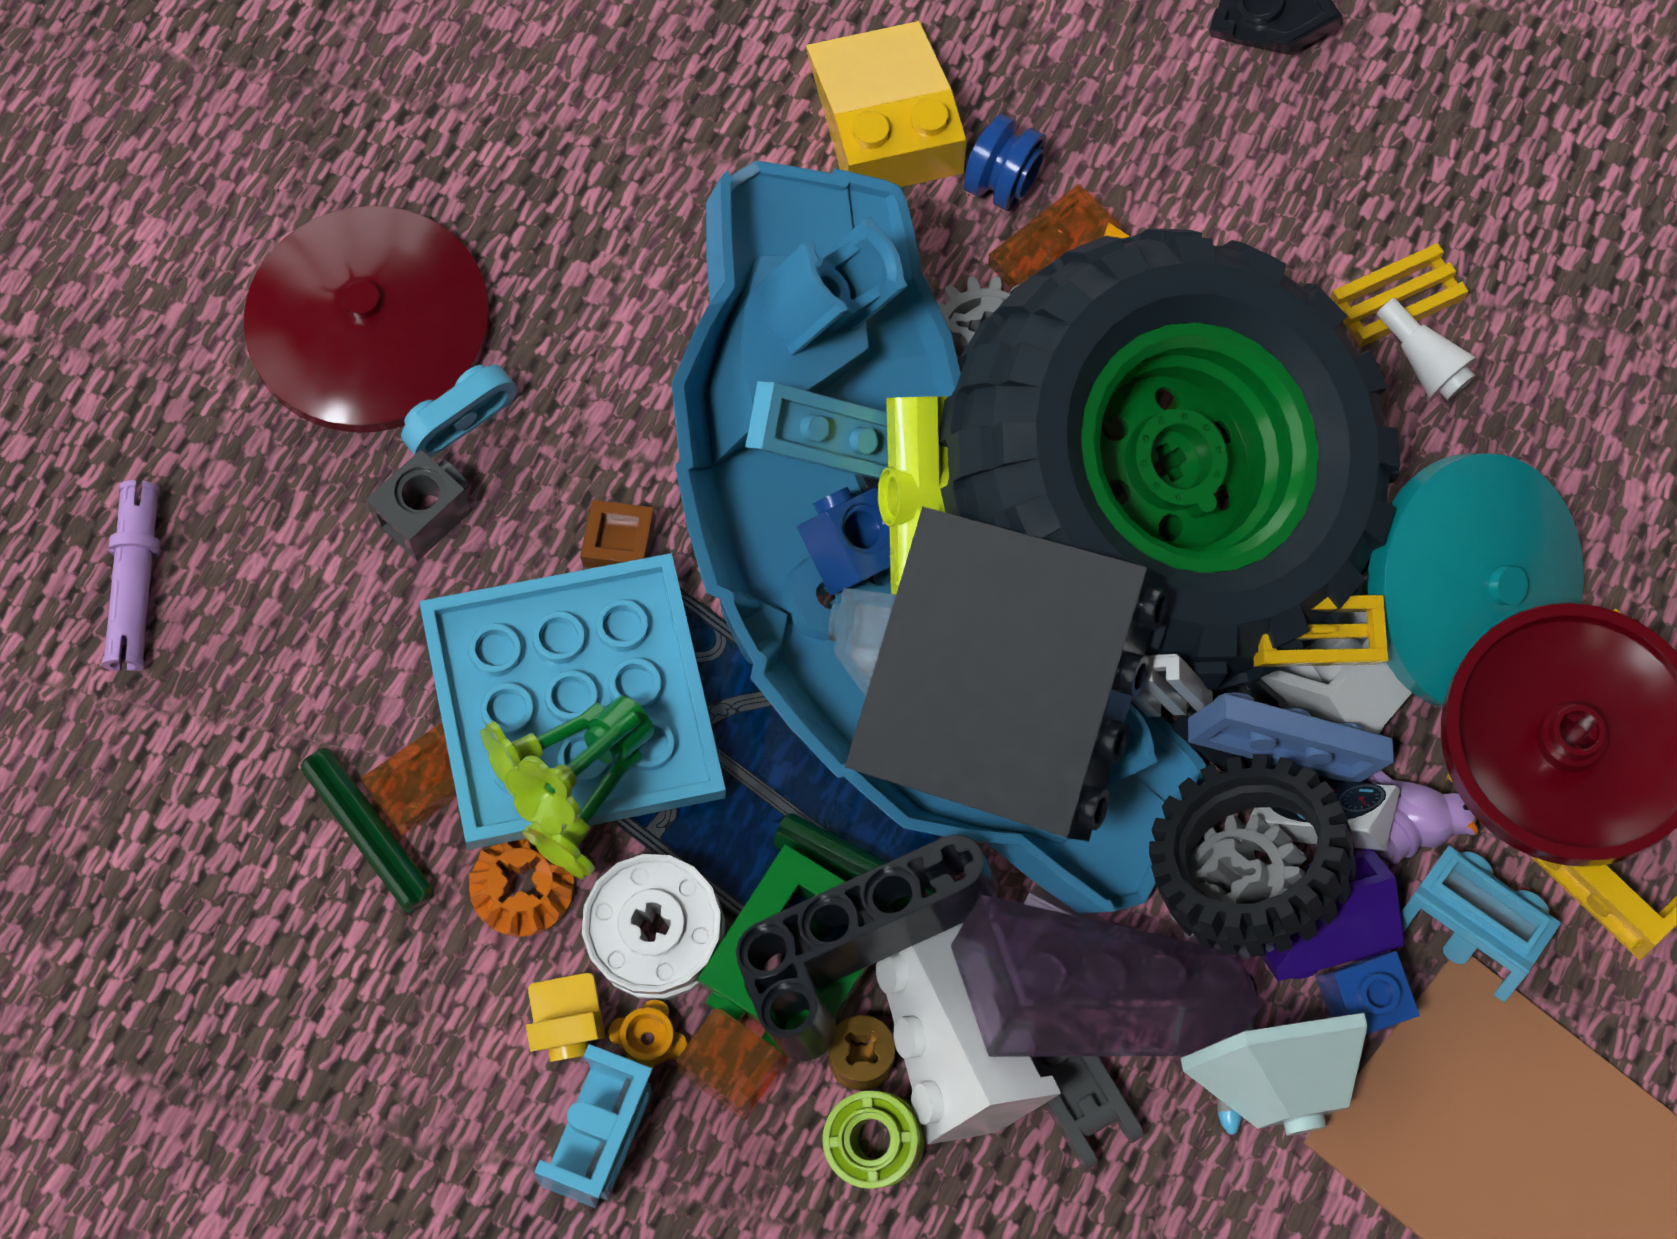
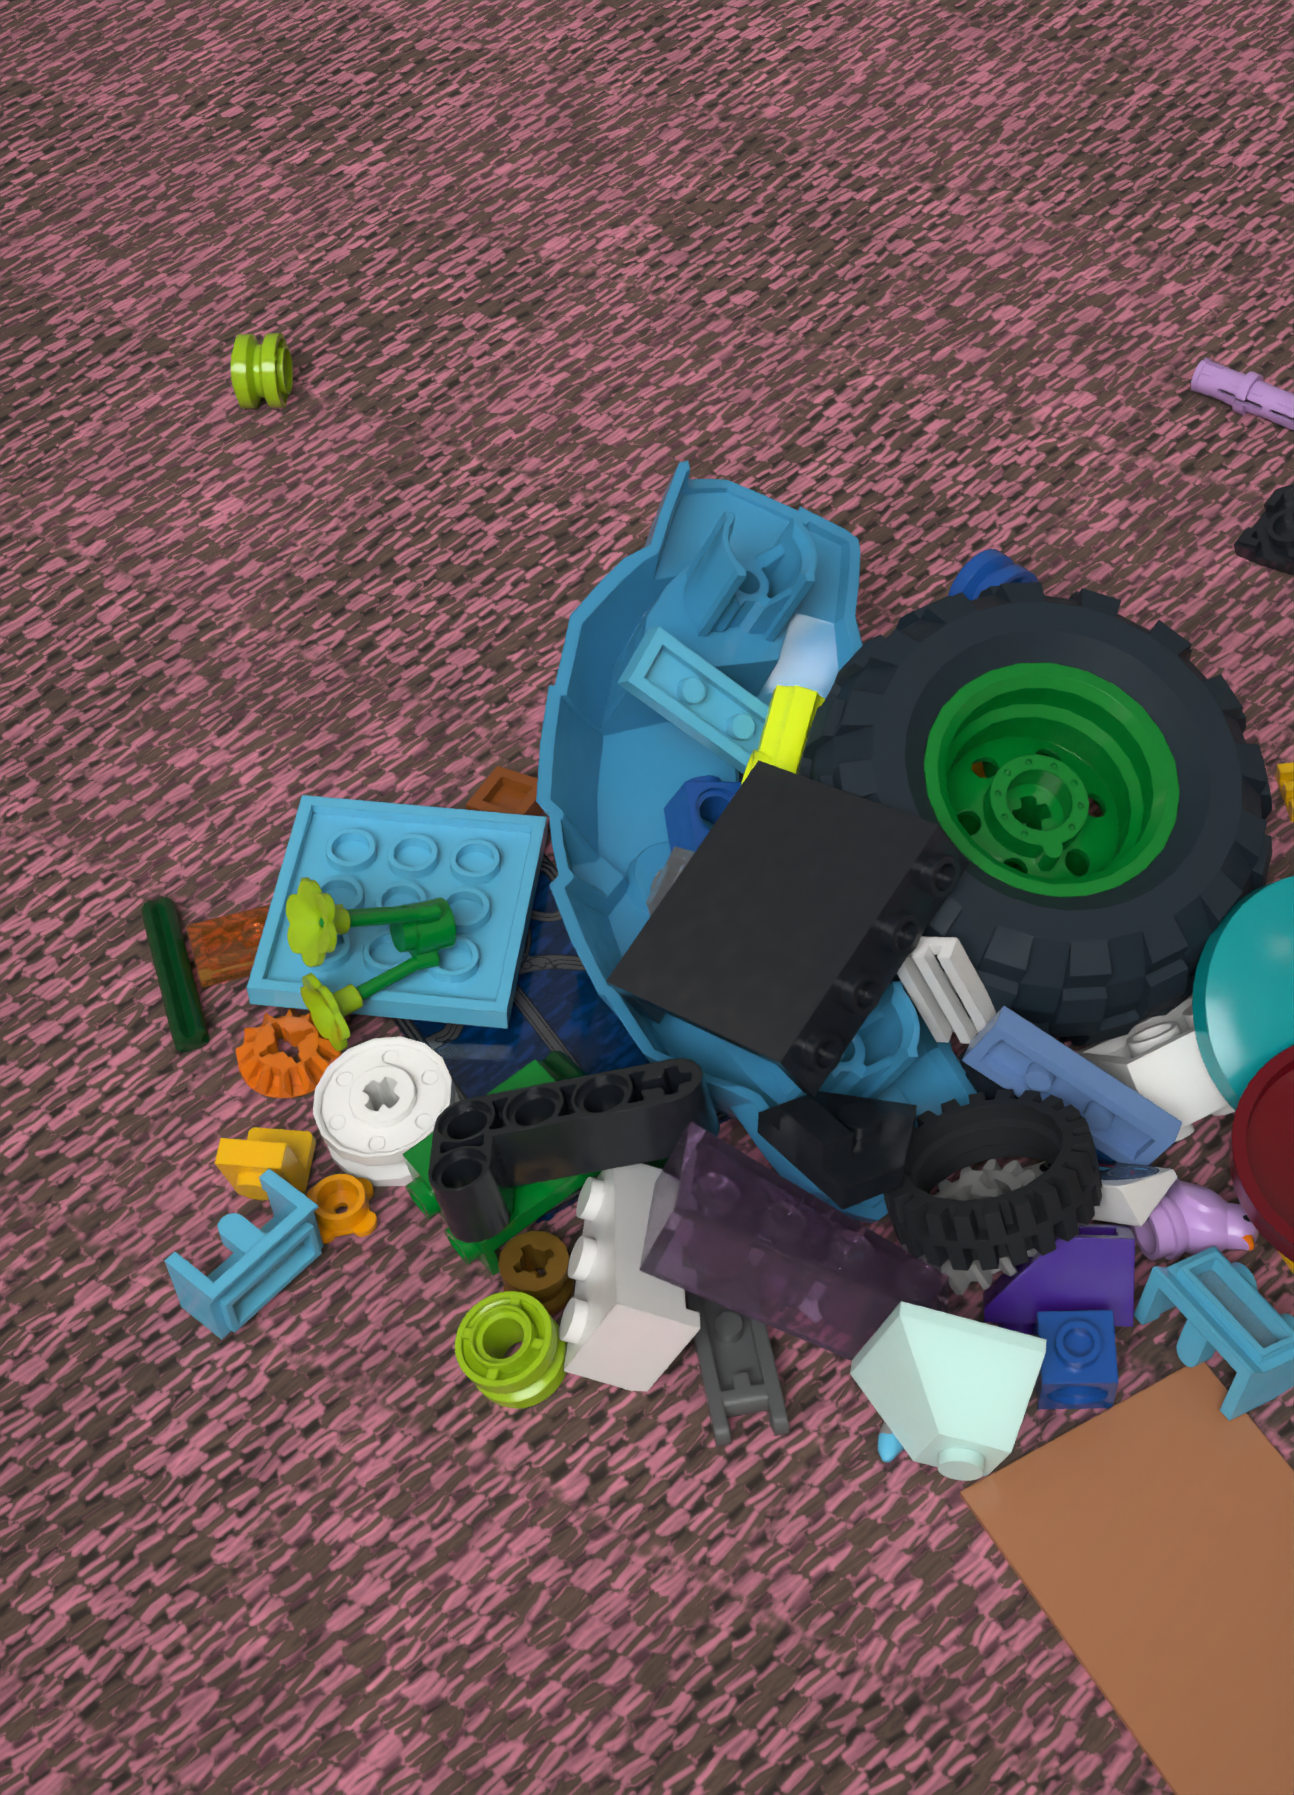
camera: 25 degrees right, 20 degrees down
(116, 50) = (261, 370): none -> lime wheel
(131, 575) = (87, 717): lavender pin -> none
(365, 317) = (373, 601): dark red dish -> none
(420, 529) = (346, 735): dark grey brick -> none
(473, 400) = (414, 676): medium azure plate -> none
(730, 1063) = (405, 1245): clear orange panel -> none
(889, 105) = (905, 544): yellow slope -> none
(1124, 872) = (843, 1142): none -> black plate
(1374, 630) = (1134, 1012): yellow tile -> none

